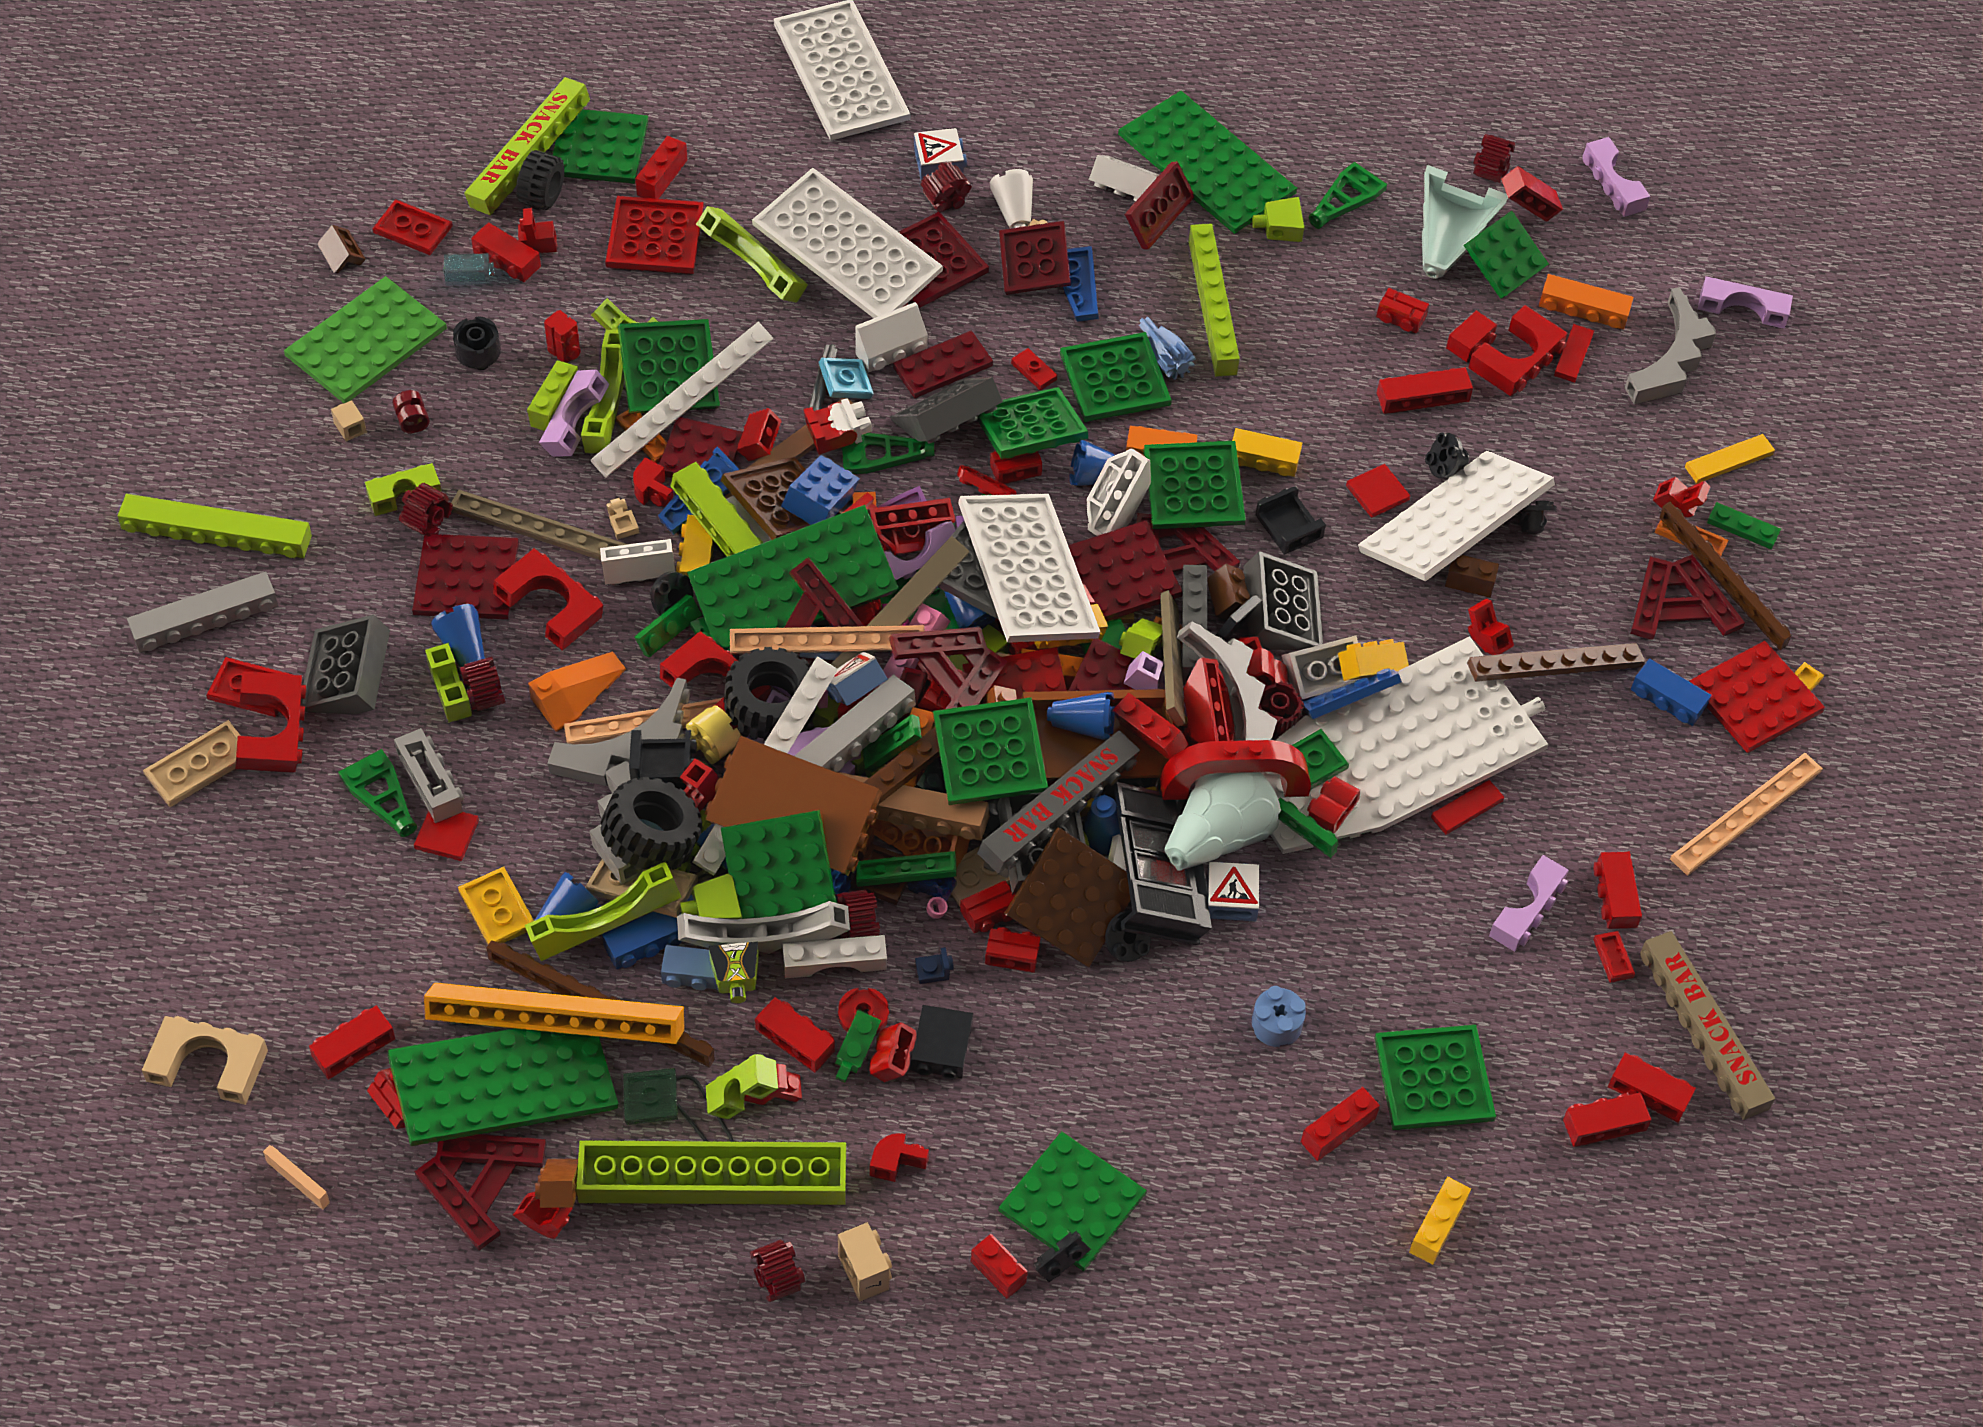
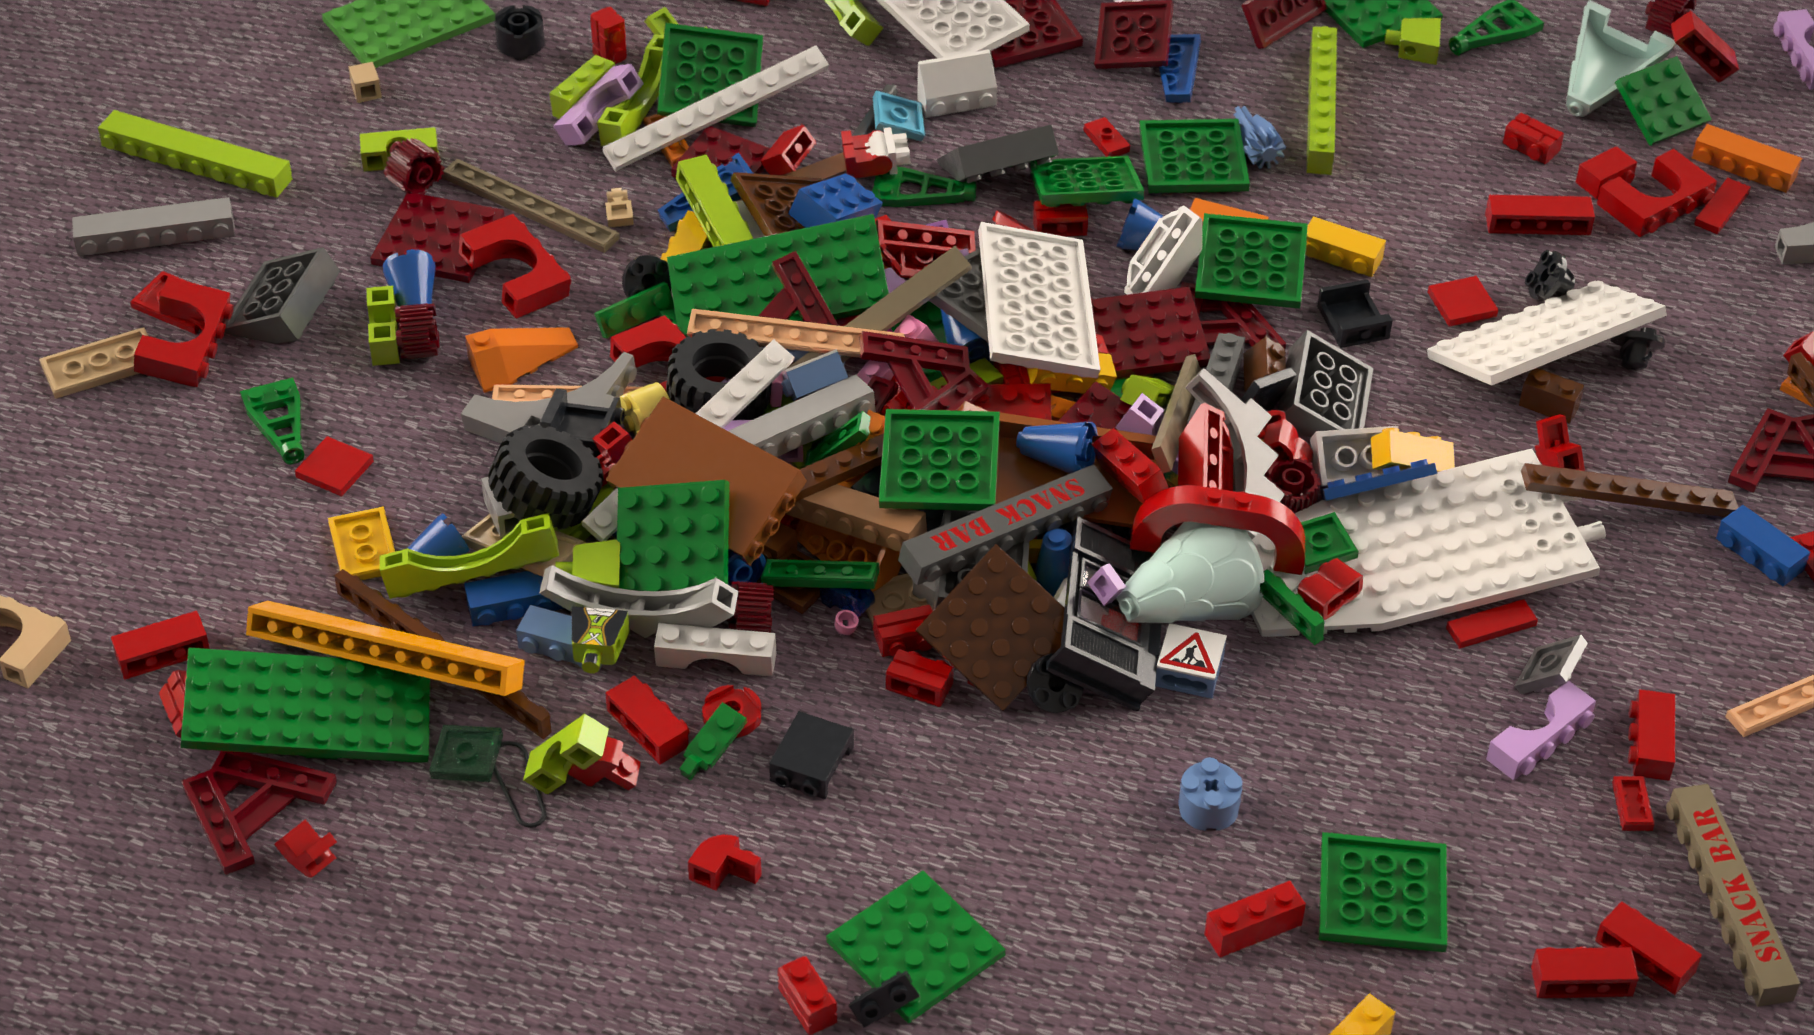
camera: 15 degrees right, 10 degrees down
(296, 1177) = (53, 764): light nougat tile -> none
(410, 411) = (430, 82): dark red wheel -> none
(446, 797) = (341, 430): light grey brick -> none
(557, 1183) = (330, 814): dark orange brick -> none
(637, 561) = (618, 245): white brick -> none
(648, 483) = (659, 179): red brick -> none
(712, 1172) = (509, 839): lime brick -> none
(777, 1270) = (547, 949): dark red brick -> none
(864, 1261) = (651, 959): tan brick -> none
(893, 1052) = (751, 753): red brick -> none
(934, 967) = (826, 682): dark blue bracket -> none
(943, 364) = (1007, 118): dark red plate -> none
(1156, 844) = (1106, 584): none -> lavender plate
(1525, 841) = (1551, 664): none -> flat silver plate

